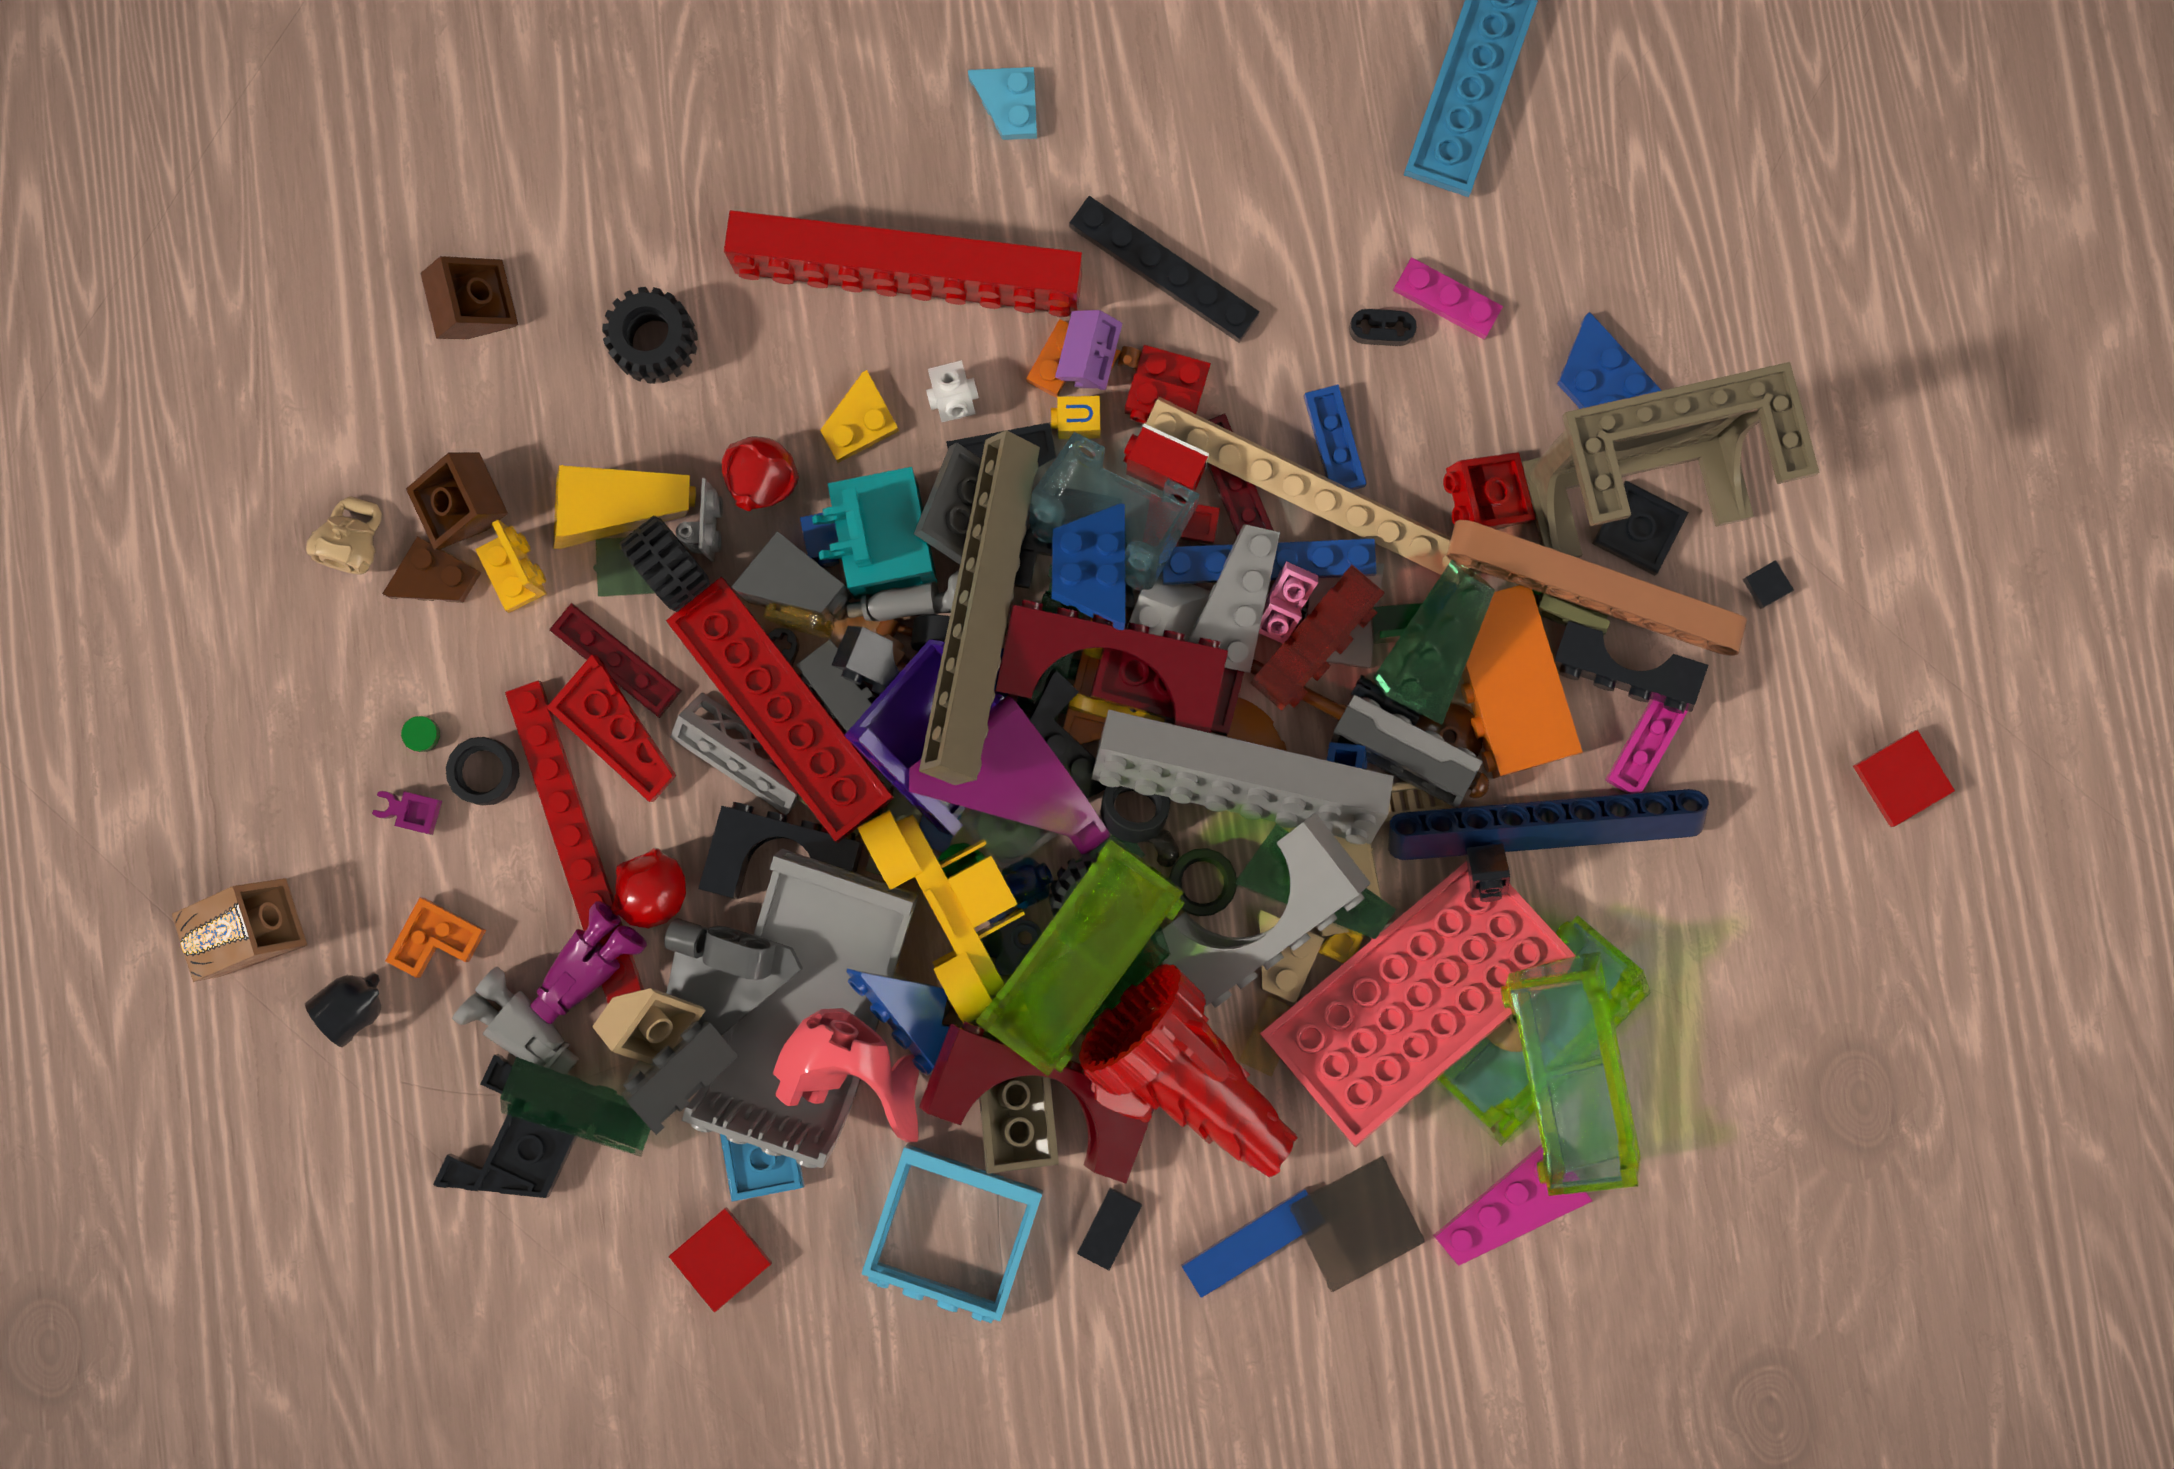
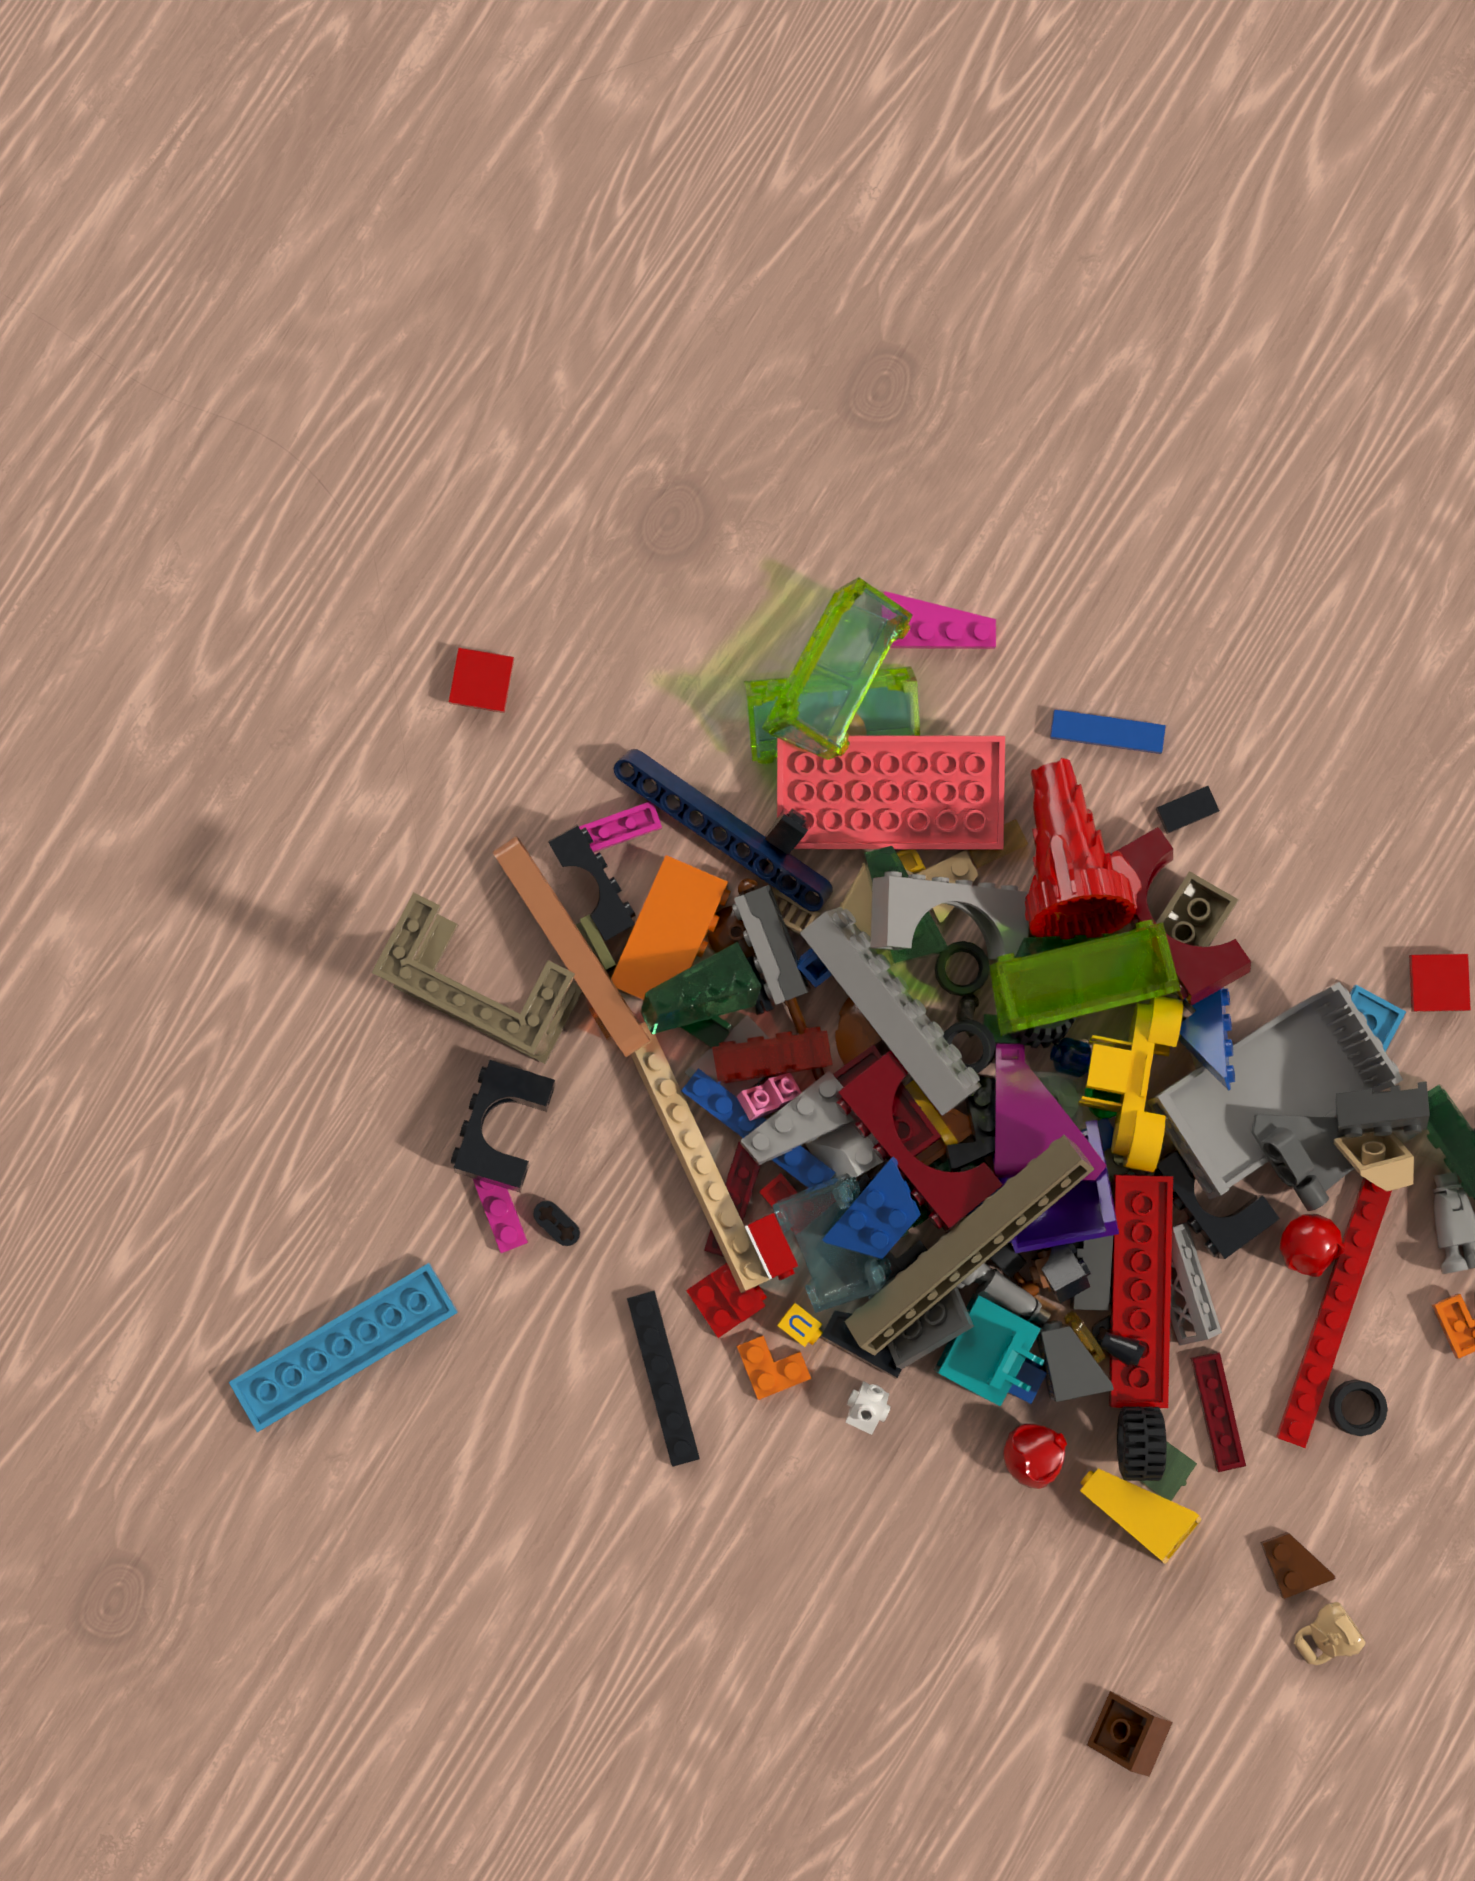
camera: 145 degrees left, 0 degrees up
(412, 812) = (1422, 1418): magenta plate -> none
(420, 734) = (1379, 1465): green tile -> none
(456, 499) = (1241, 1601): reddish brown slope -> none
(510, 568) = (1239, 1526): yellow bracket -> none
(585, 963) = (1385, 1229): magenta piece -> none
(607, 724) = (1255, 1367): red wing -> none
(635, 312) = (1046, 1628): black tyre -> none
(702, 536) = (1099, 1440): light grey hinge -> none
(753, 636) = (1123, 1348): none -> black cone
(840, 1044) = (1272, 1050): coral hips -> none
(858, 420) = (939, 1441): yellow wing -> none
(904, 263) = (831, 1518): red brick -> none
(917, 1286) = (1319, 851): medium azure window -> none
(1005, 944) = (1113, 1024): dark blue plate -> none
(1008, 99) = (669, 1576): medium azure wing -> none
(1089, 349) = (758, 1362): medium lavender hinge -> none
(1129, 357) = (735, 1336): dark orange hand -> none
(1334, 437) = (648, 1176): blue plate -> none
(1357, 1223) = (1036, 692): clear smoke piece -> none
(1490, 491) = (583, 1061): red plate -> none
(1517, 322) = (498, 1086): none -> black arch
(1601, 369) = (445, 1068): blue wing -> none
(1645, 535) = (505, 963): black tile -> none
(1768, 584) = (458, 863): black tile -> none

